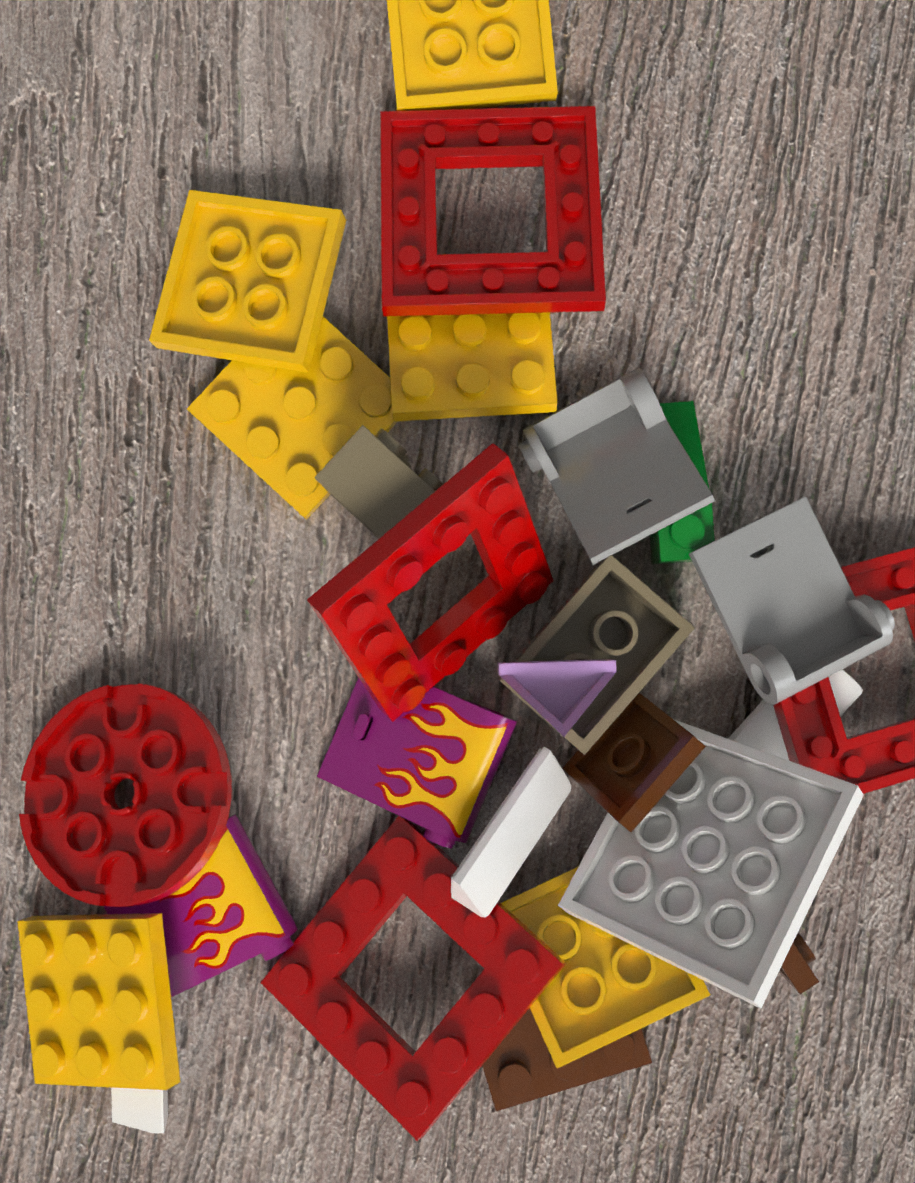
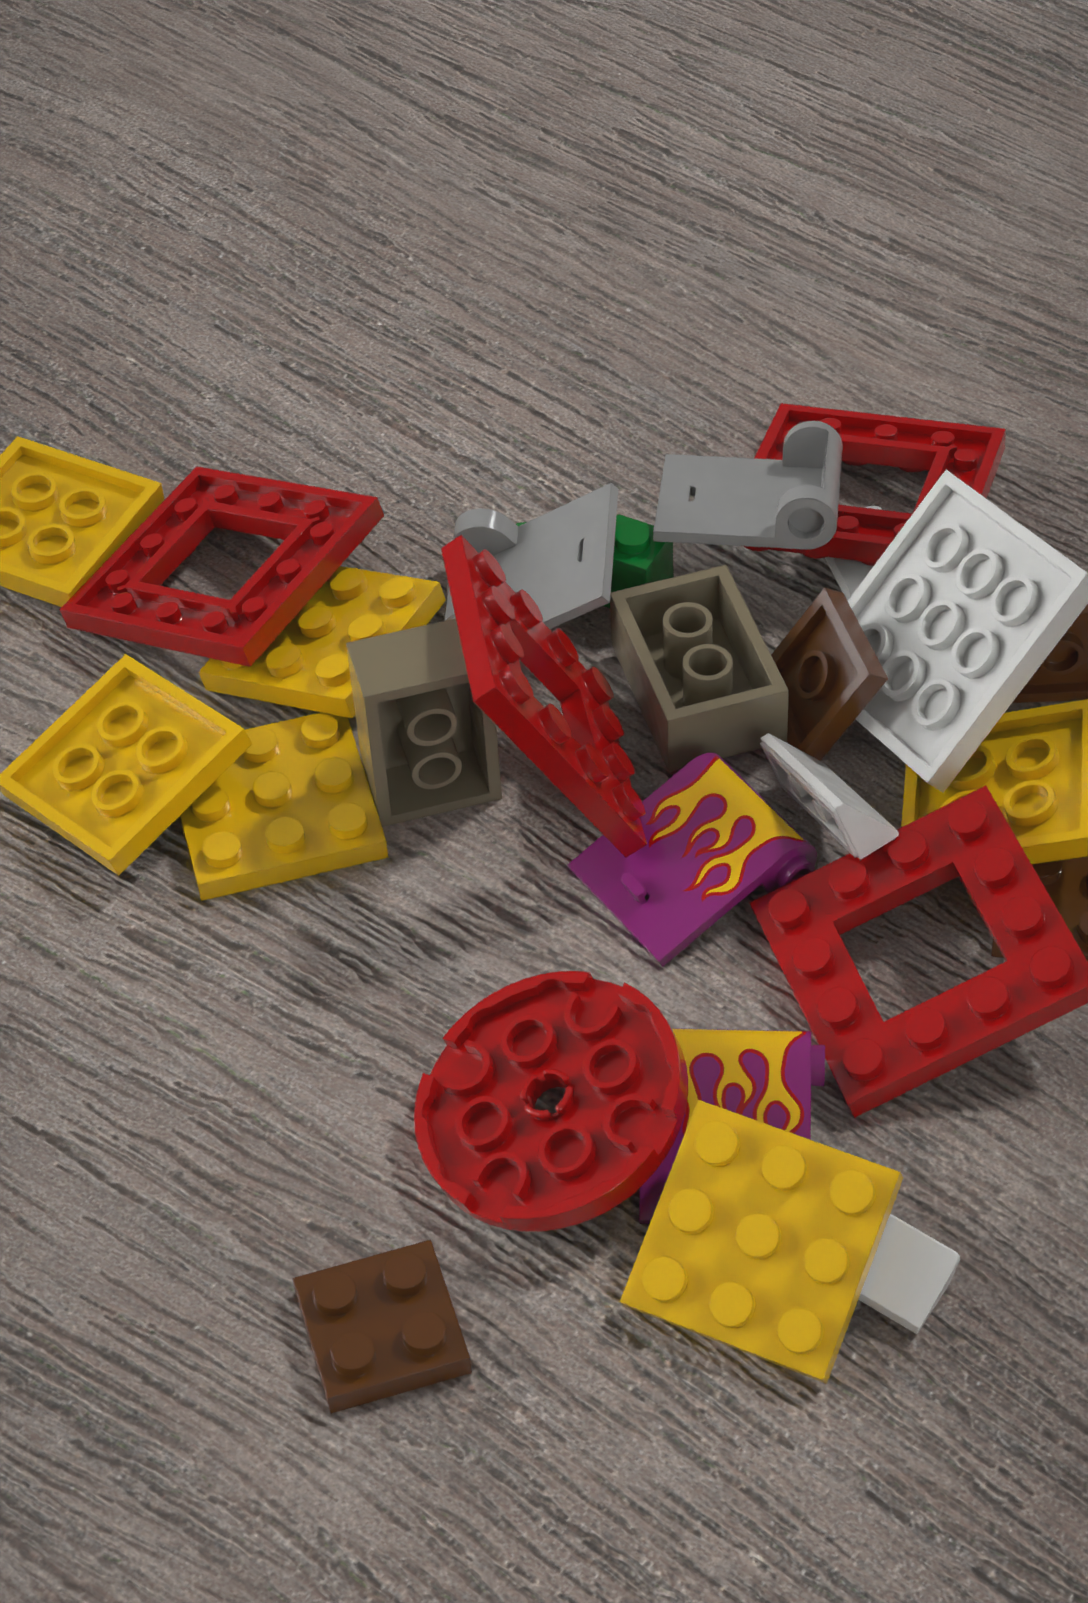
camera: 60 degrees left, 40 degrees down
(558, 688) = (701, 661): lavender slope -> none

